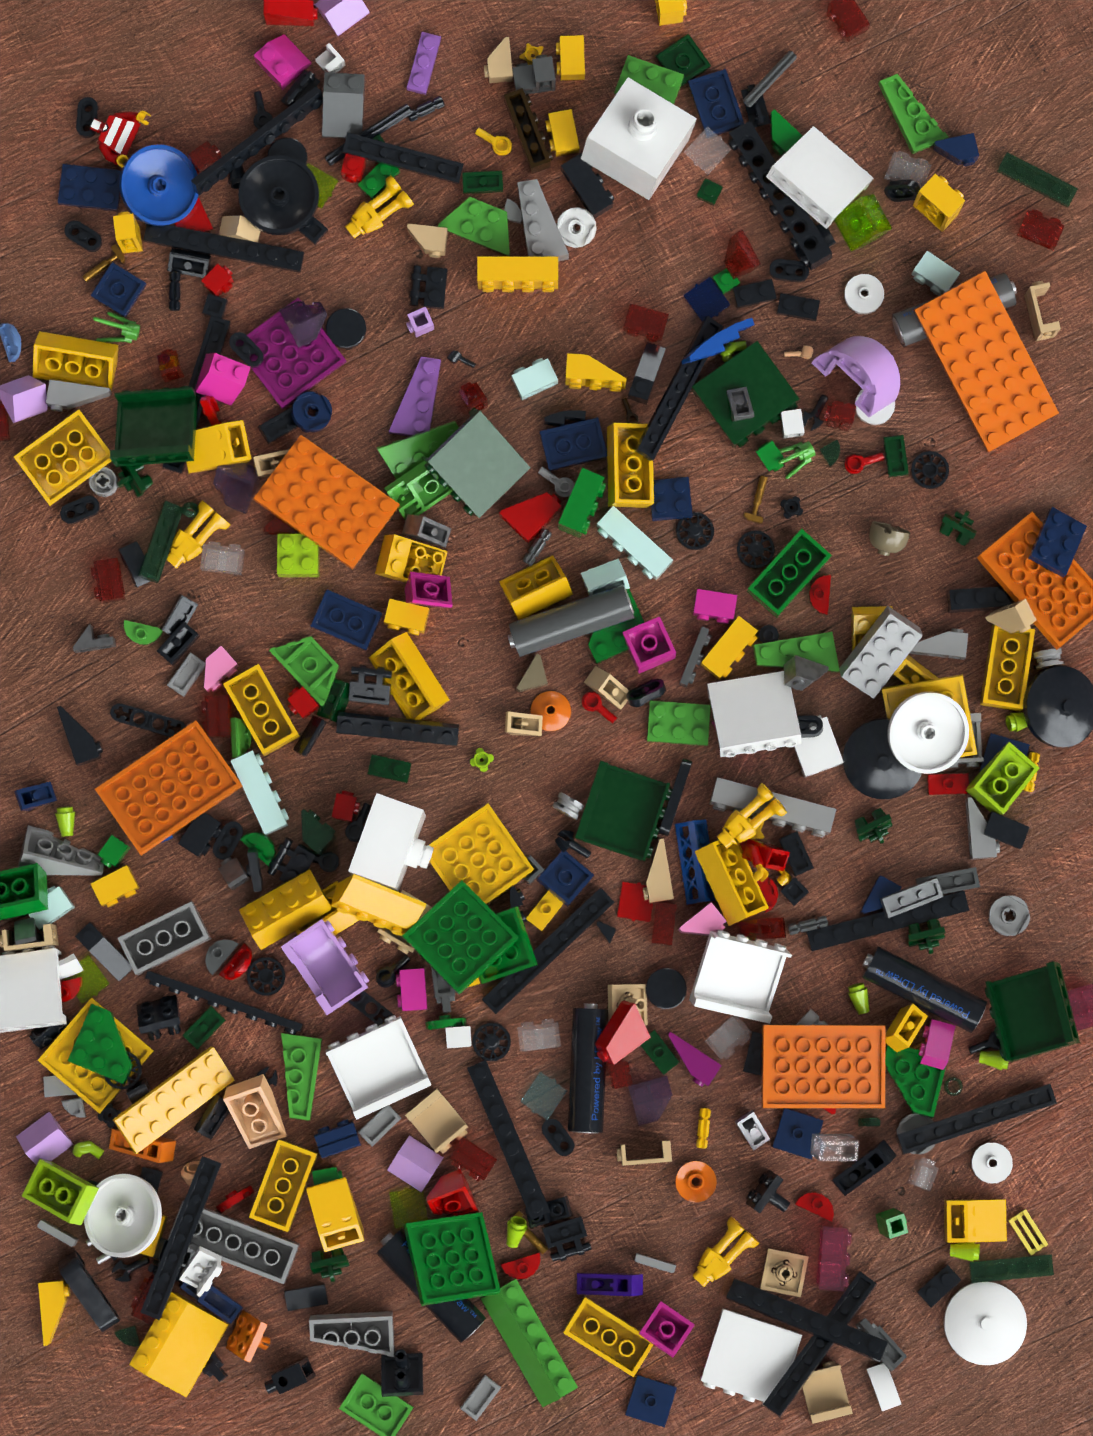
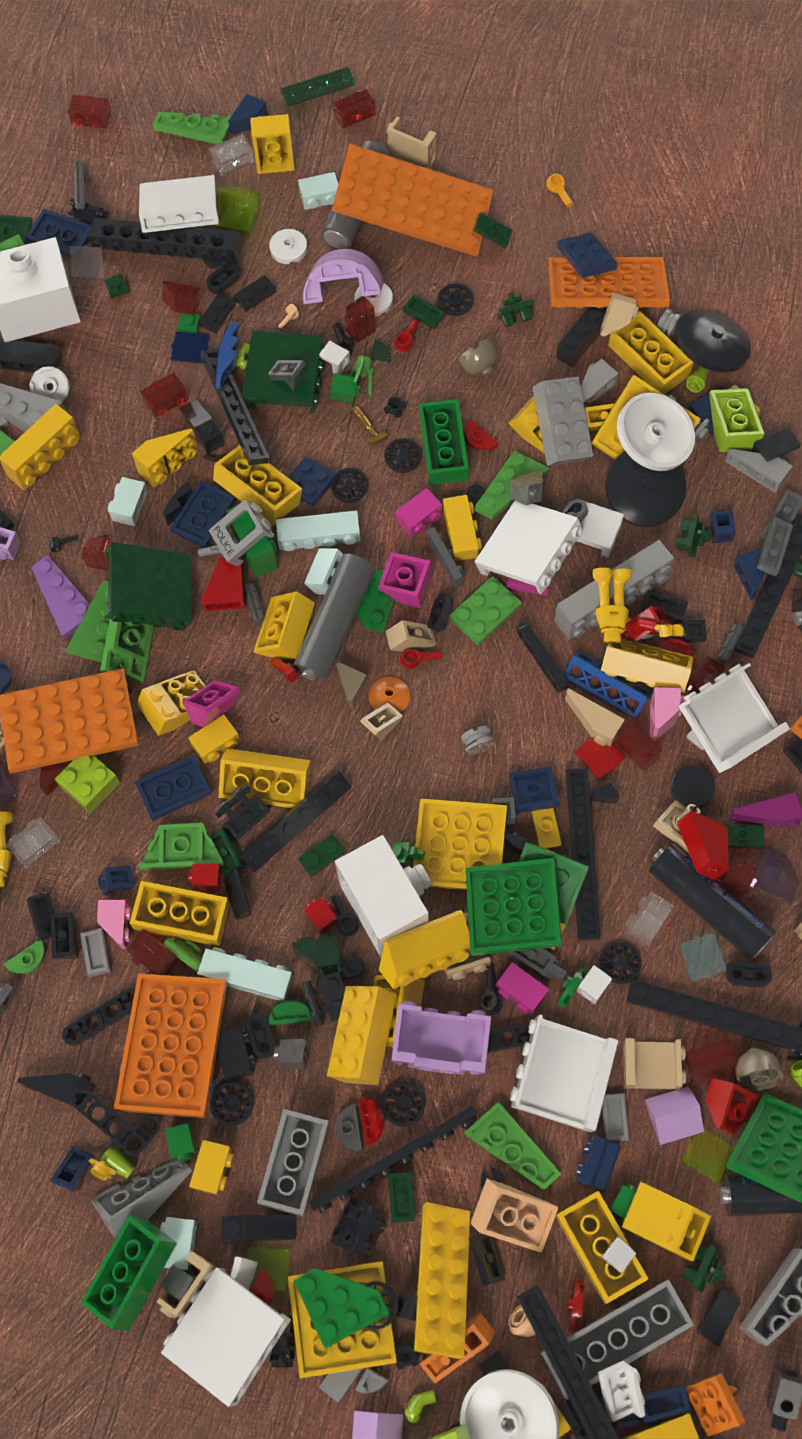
camera: 45 degrees left, 15 degrees down
(51, 815) = (101, 1169): none -> yellow plate
(88, 791) = (110, 1117): none -> black beam
(167, 861) = (231, 1104): none -> black wheel
(247, 641) = (115, 879): none -> dark blue bracket
(253, 869) = (305, 1033): black plate -> none
(285, 1200) = (618, 1254): none -> white slope
(426, 530) = (161, 668): flat silver slope -> none
(439, 826) = (406, 852): none -> green plate
(482, 765) = (380, 772): lime plate -> none
(493, 1195) = (758, 1070): none -> dark tan cylinder
(502, 621) = (287, 669): none -> red plate
(558, 488) = (226, 543): none -> light grey window
(570, 843) = (505, 766): black bar -> none
(623, 812) = (519, 705): dark green panel -> none
(727, 1037) = (773, 771): clear brick -> none
(782, 134) = (123, 207): green slope -> none
(893, 846) = (722, 526): none -> dark blue brick
(902, 190) = (242, 163): black plate -> none
(947, 784) = (703, 462): red plate -> none
(1017, 446) = (492, 230): none -> dark green plate

